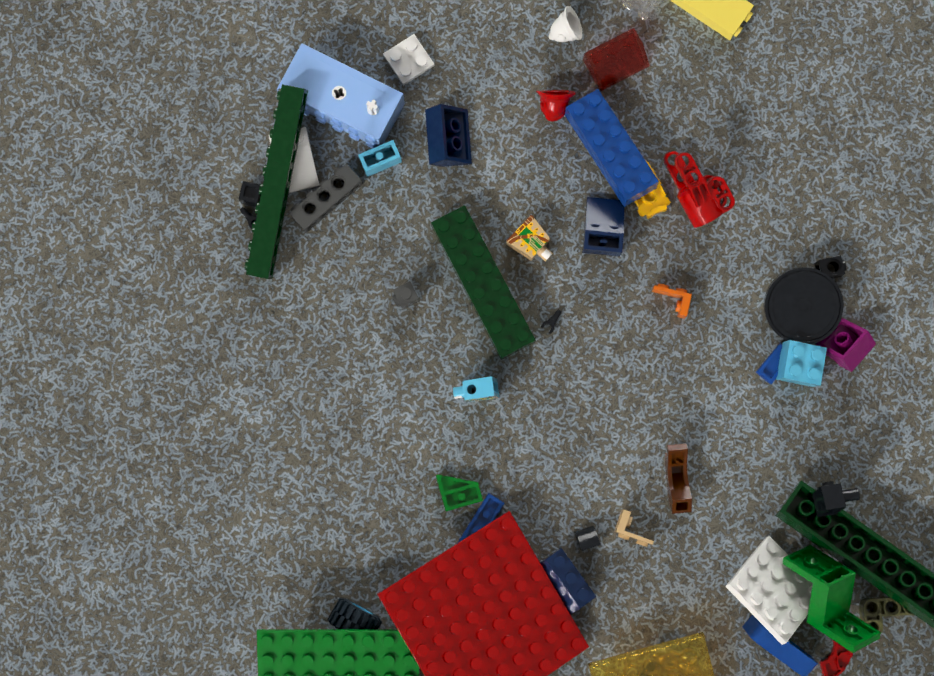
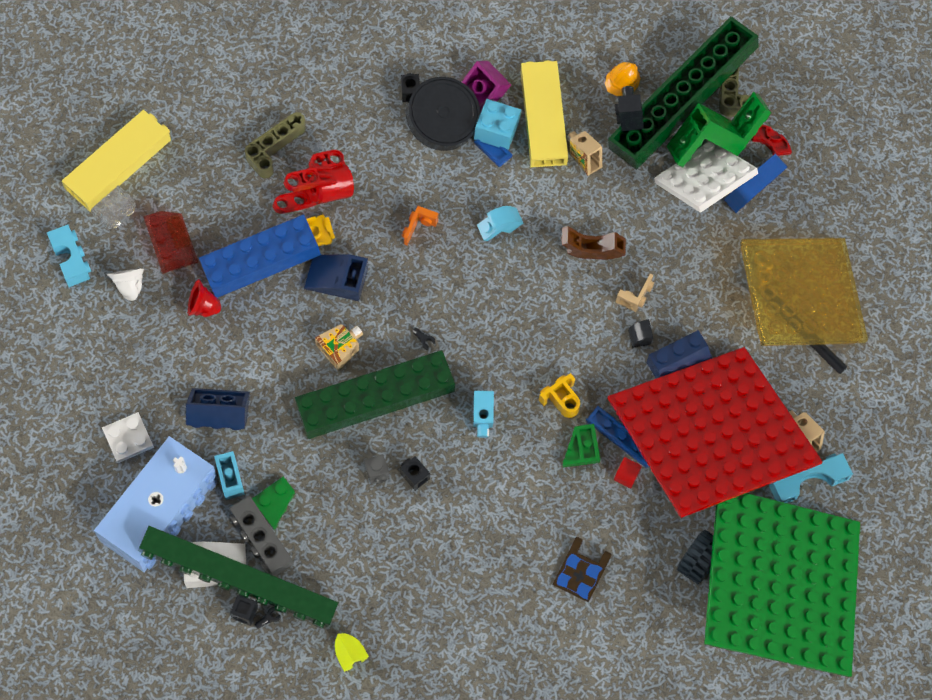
camera: 85 degrees left, 15 degrees down
(227, 297) = (349, 651): none -> neon yellow brick
(330, 503) = (580, 574): none -> dark brown flag
(364, 205) = (274, 501): none -> green wing
(408, 340) = (418, 480): none -> black brick
(436, 539) = (627, 472): none -> red brick
(509, 464) = (562, 394): none -> yellow pin
(689, 380) = (500, 220): none -> medium azure brick
(749, 138) = (293, 126): none -> olive beam
(785, 458) = (585, 151): none -> tan torso
(824, 410) = (544, 114): none -> light yellow brick
(881, 490) = (620, 76): none -> light orange piece

